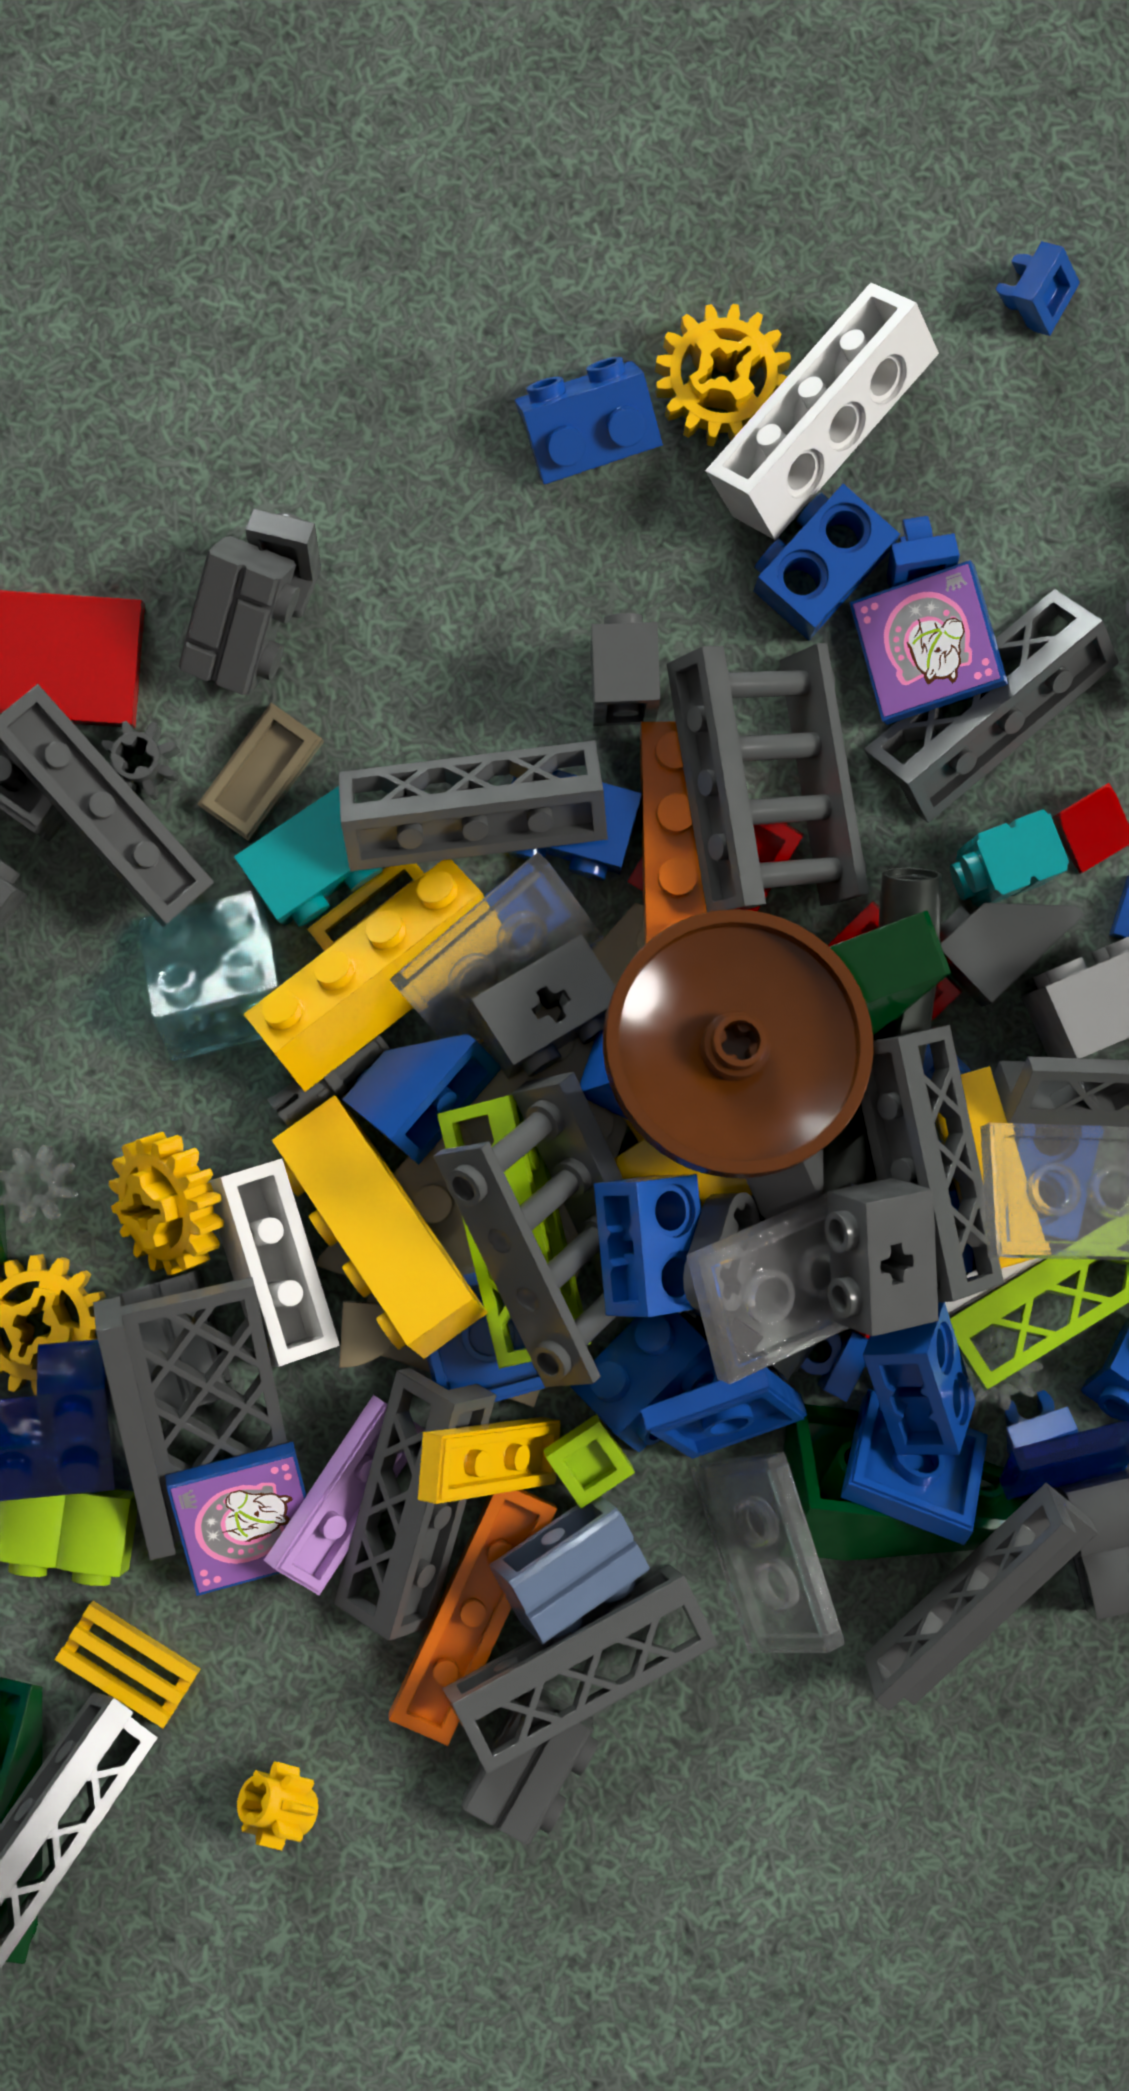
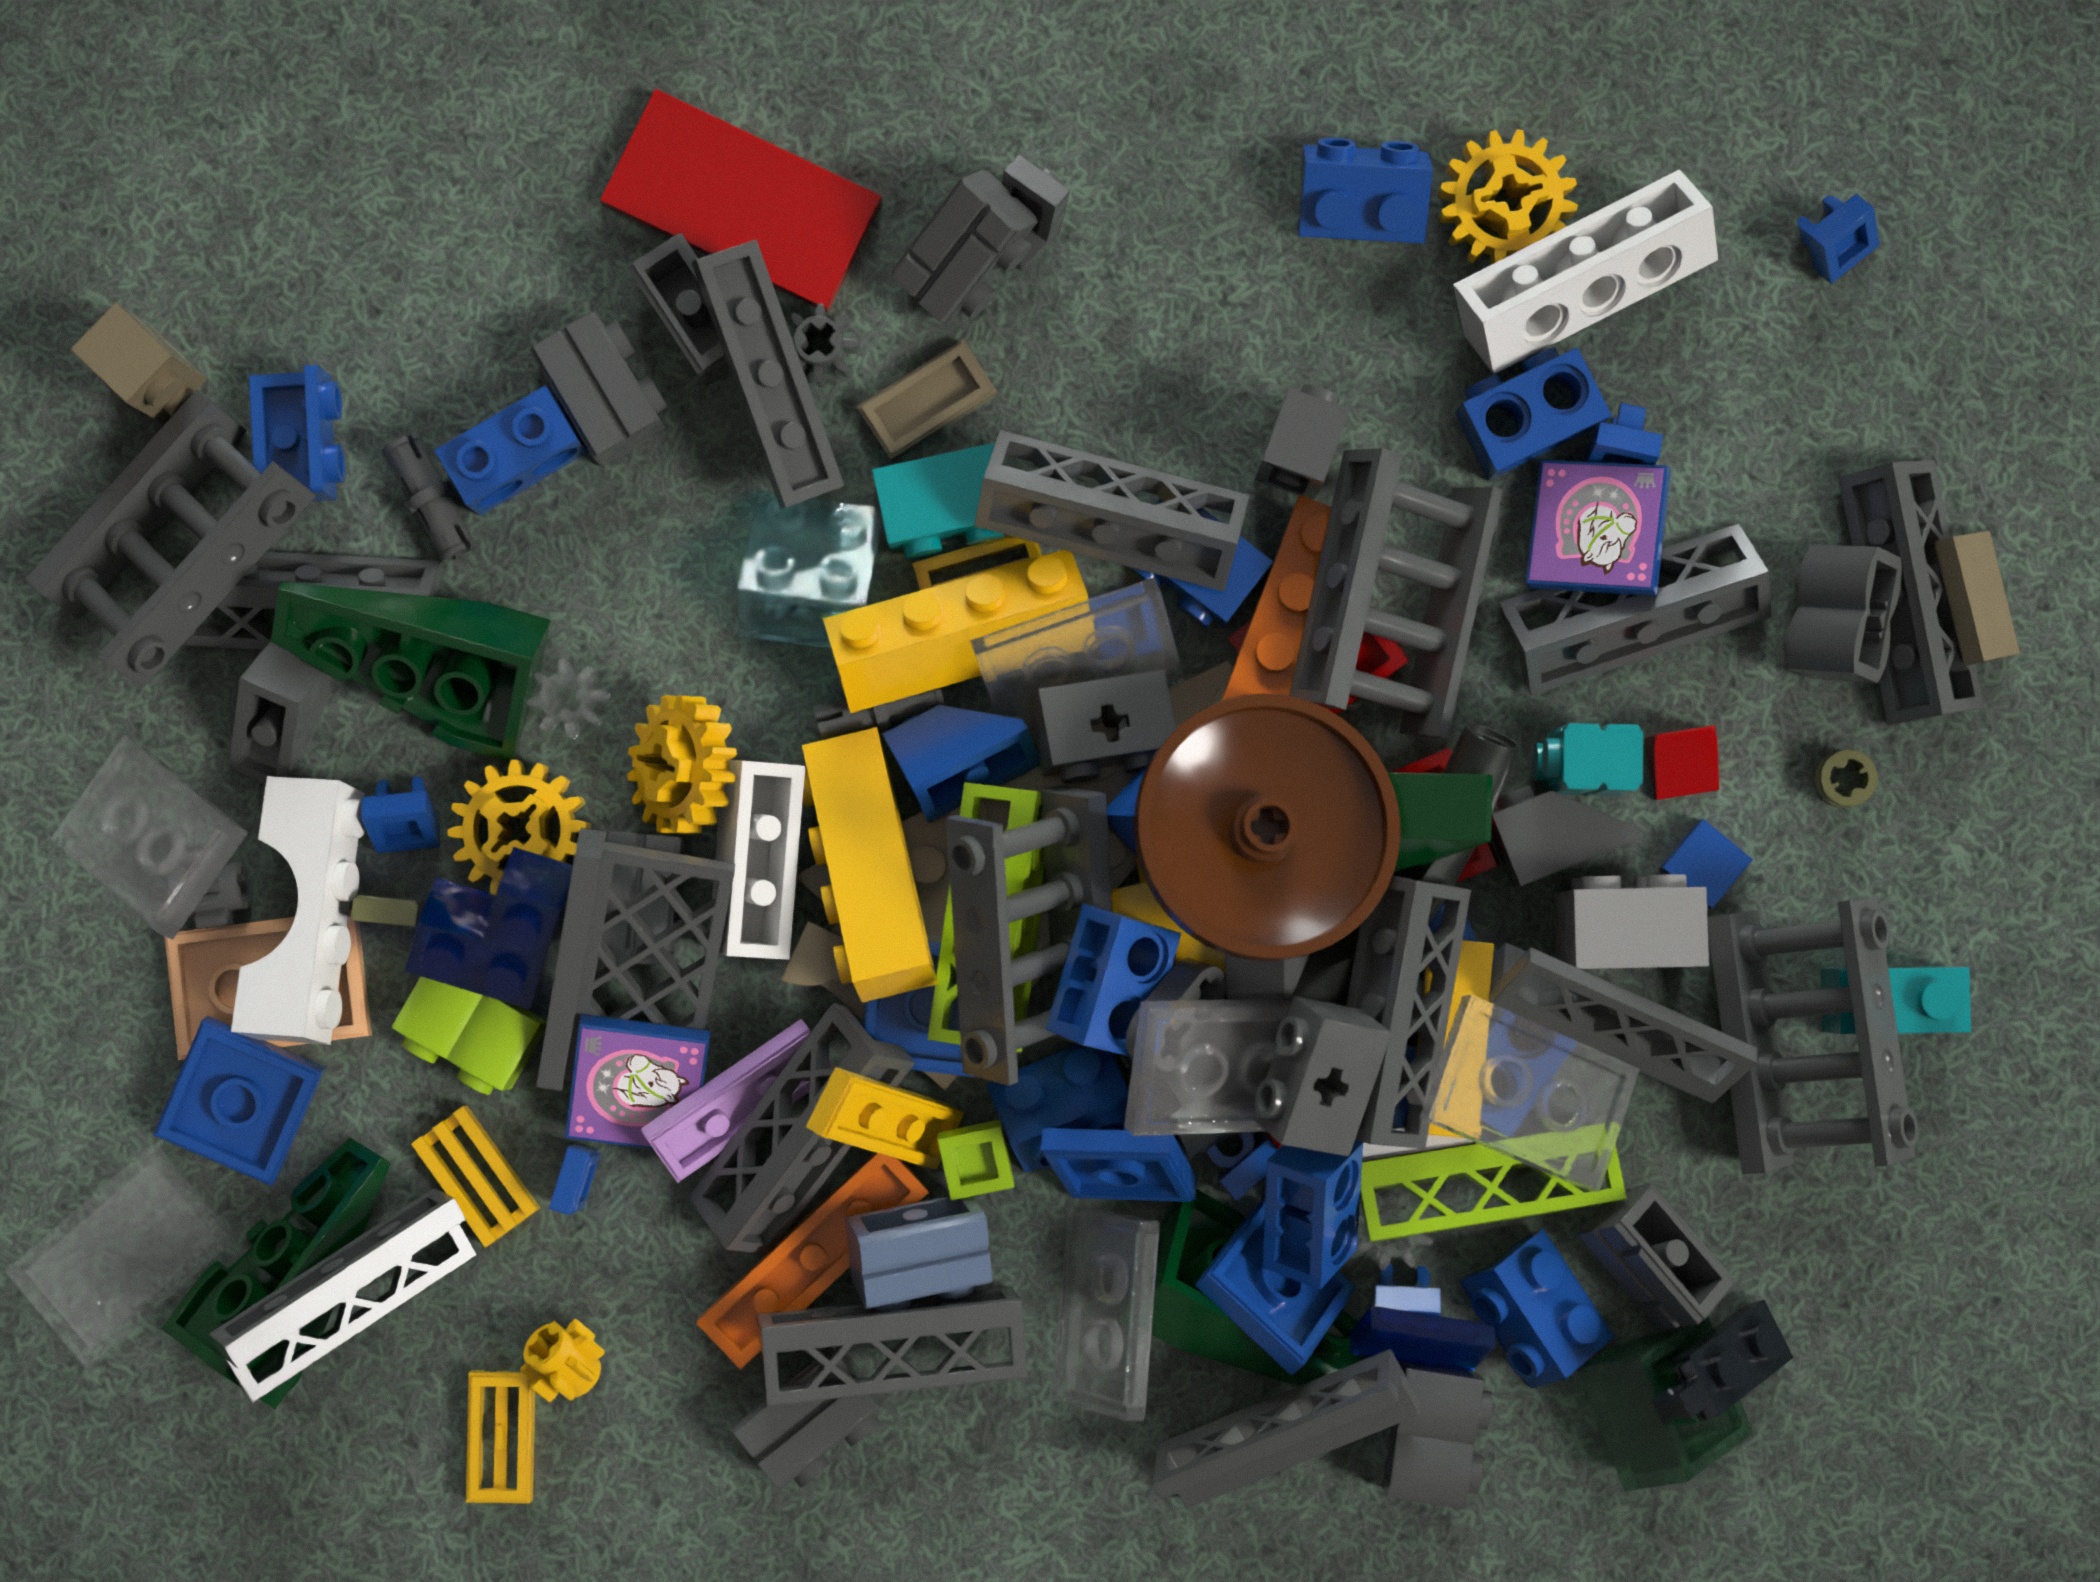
camera: 30 degrees right, 0 degrees up
(221, 1630) = (575, 1179): none -> blue tile
(270, 1952) = (475, 1426): none -> yellow tile

